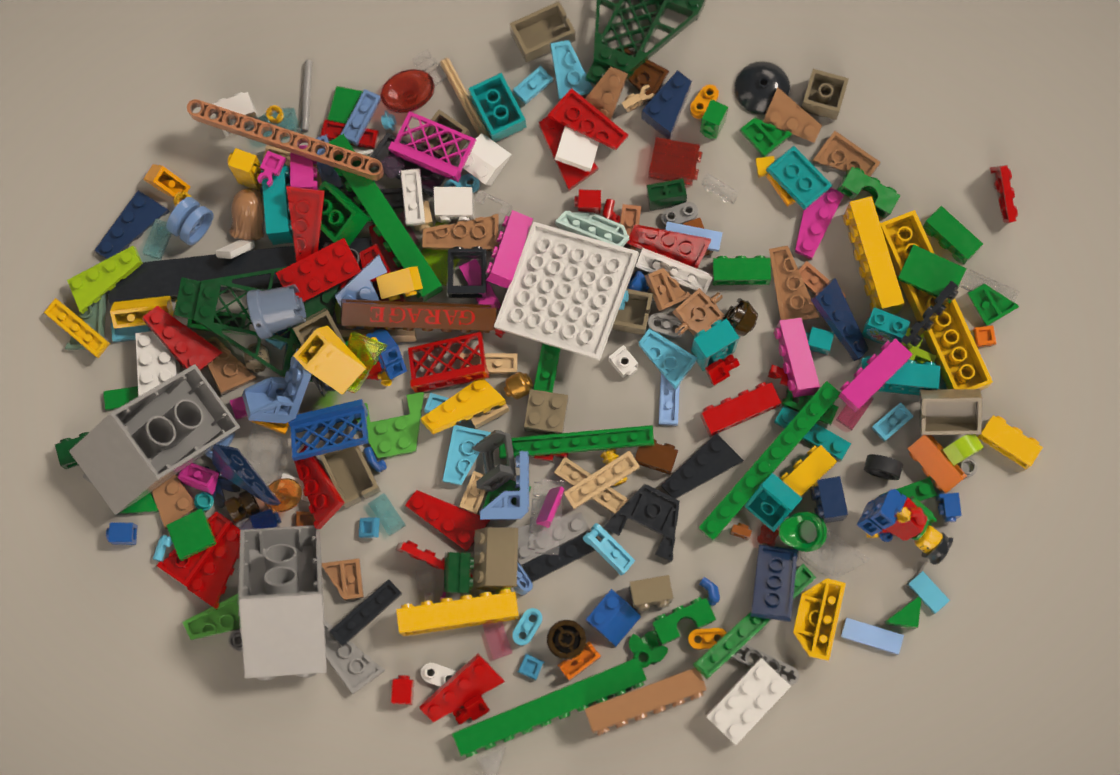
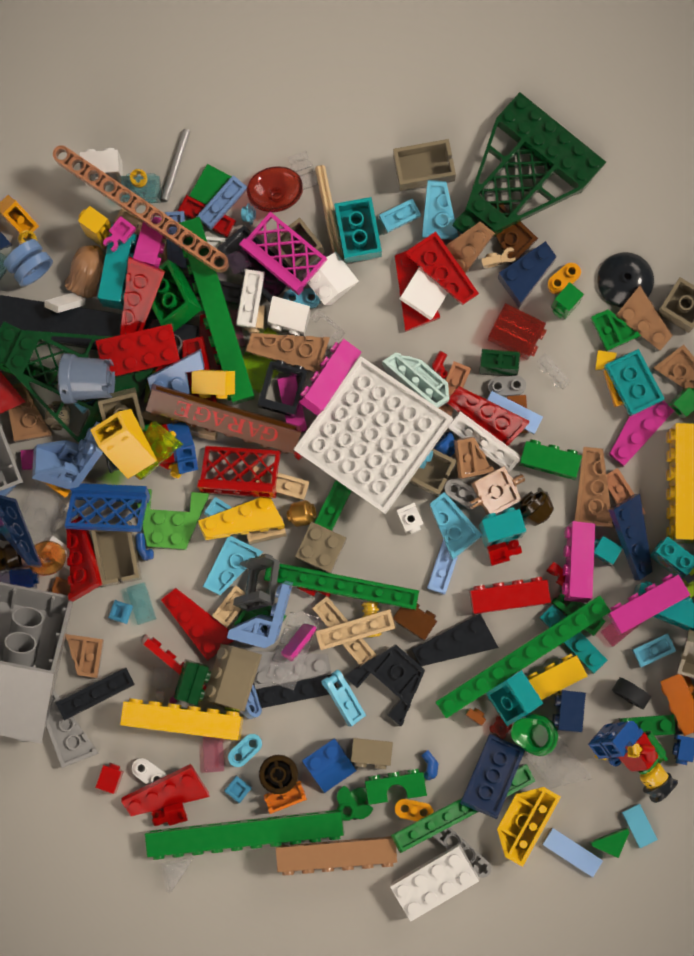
camera: 15 degrees right, 5 degrees up
(589, 201) = (421, 348): red brick -> none

